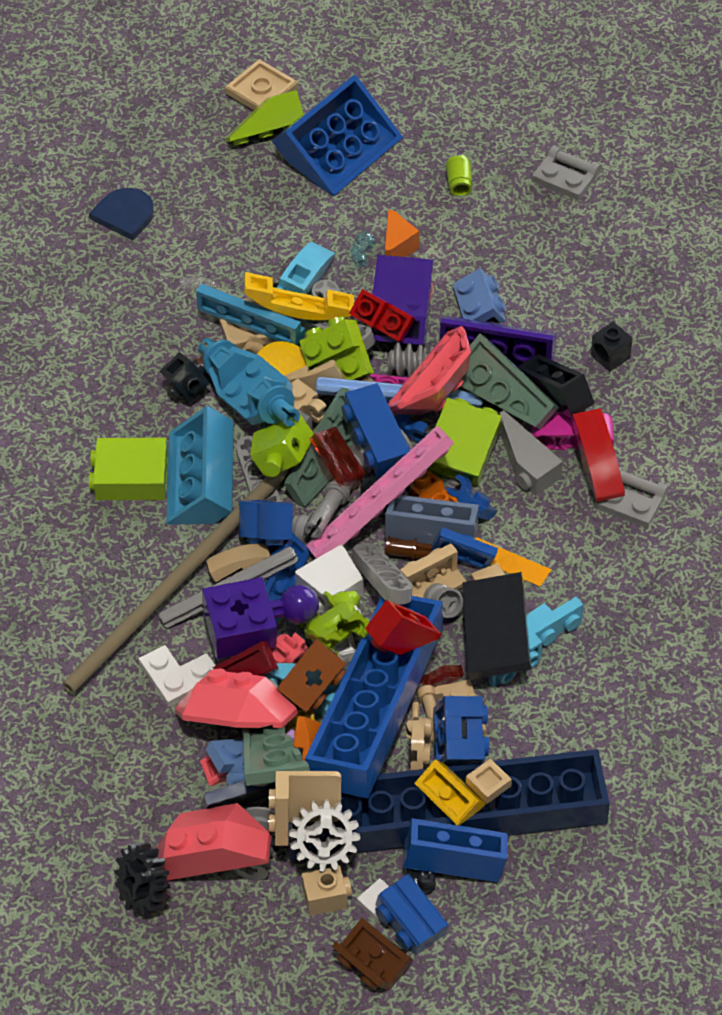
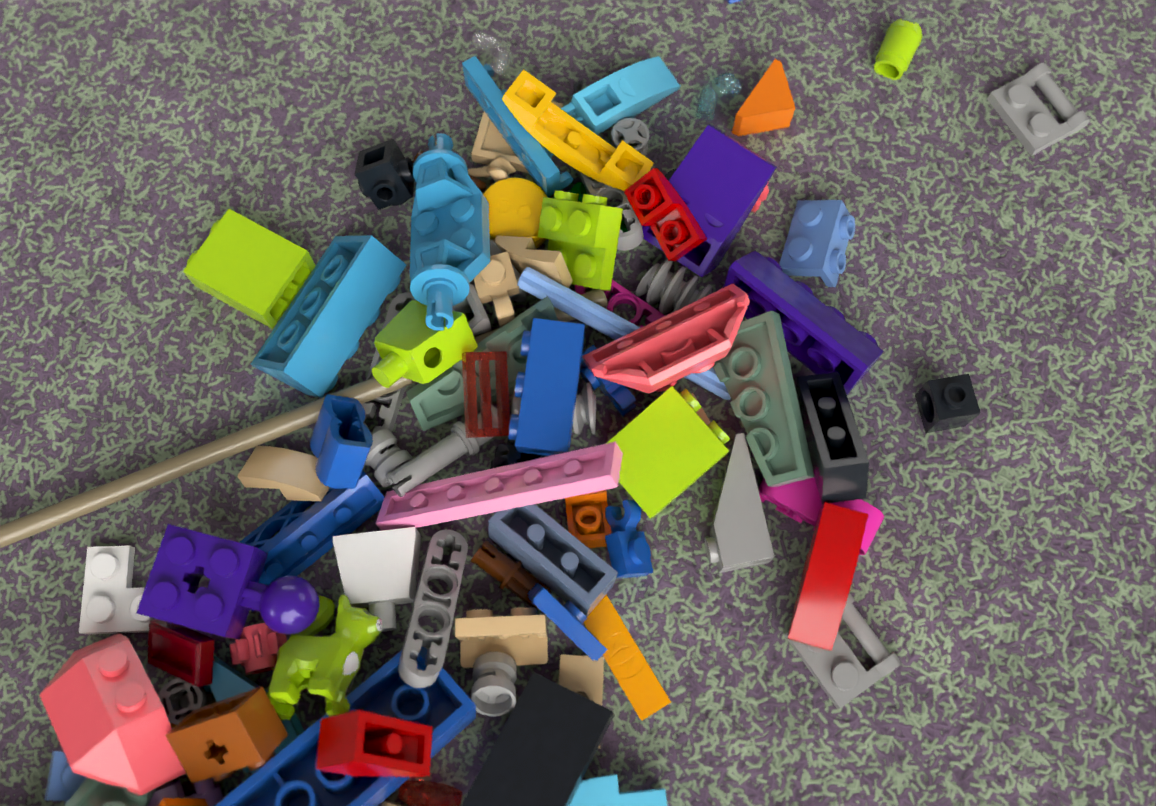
camera: 30 degrees right, 20 degrees up
(264, 568) = (245, 512): light grey axle -> none

